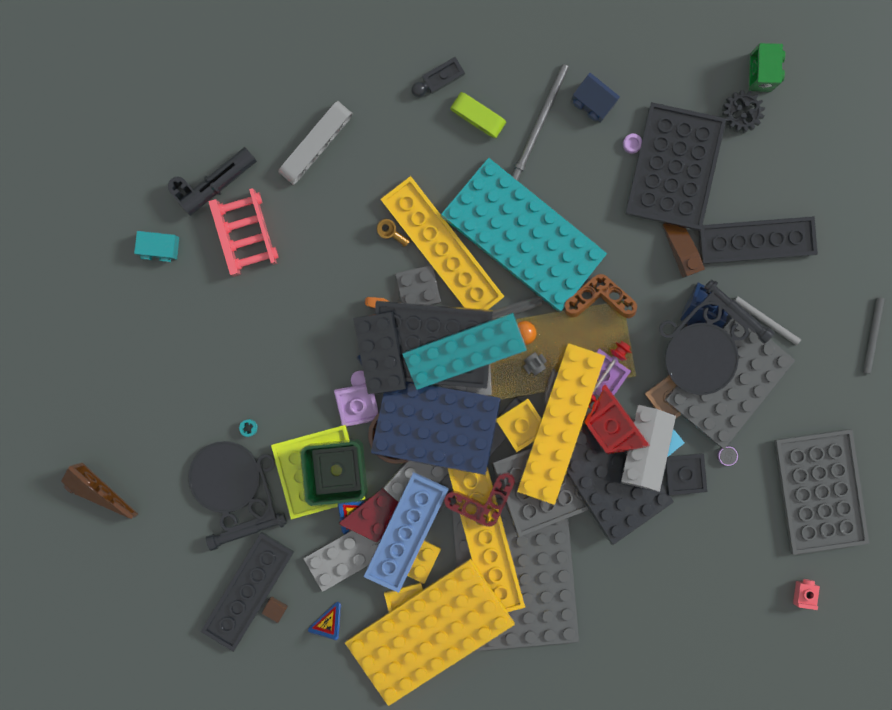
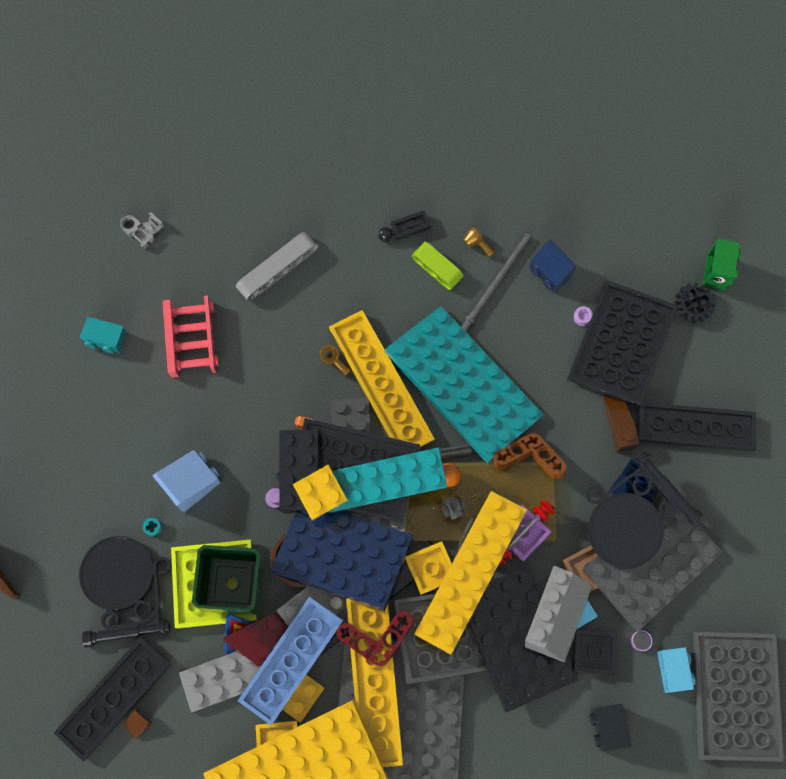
camera: 10 degrees right, 15 degrees down
(172, 126) = (145, 231): none -> light grey piece
(211, 185) = (169, 287): black piece -> none
(272, 378) = (187, 480): none -> light blue slope
(328, 623) = (189, 749): piece -> none
(355, 405) = (265, 521): lavender plate -> none
(405, 373) = (320, 492): none -> yellow plate
(510, 79) = (474, 238): none -> pearl gold bar
(613, 425) = (525, 583): red wing -> none
(708, 541) = (610, 727): none -> black slope
(763, 478) = (676, 670): none -> medium azure brick
(766, 320) = (706, 516): light grey bar -> none

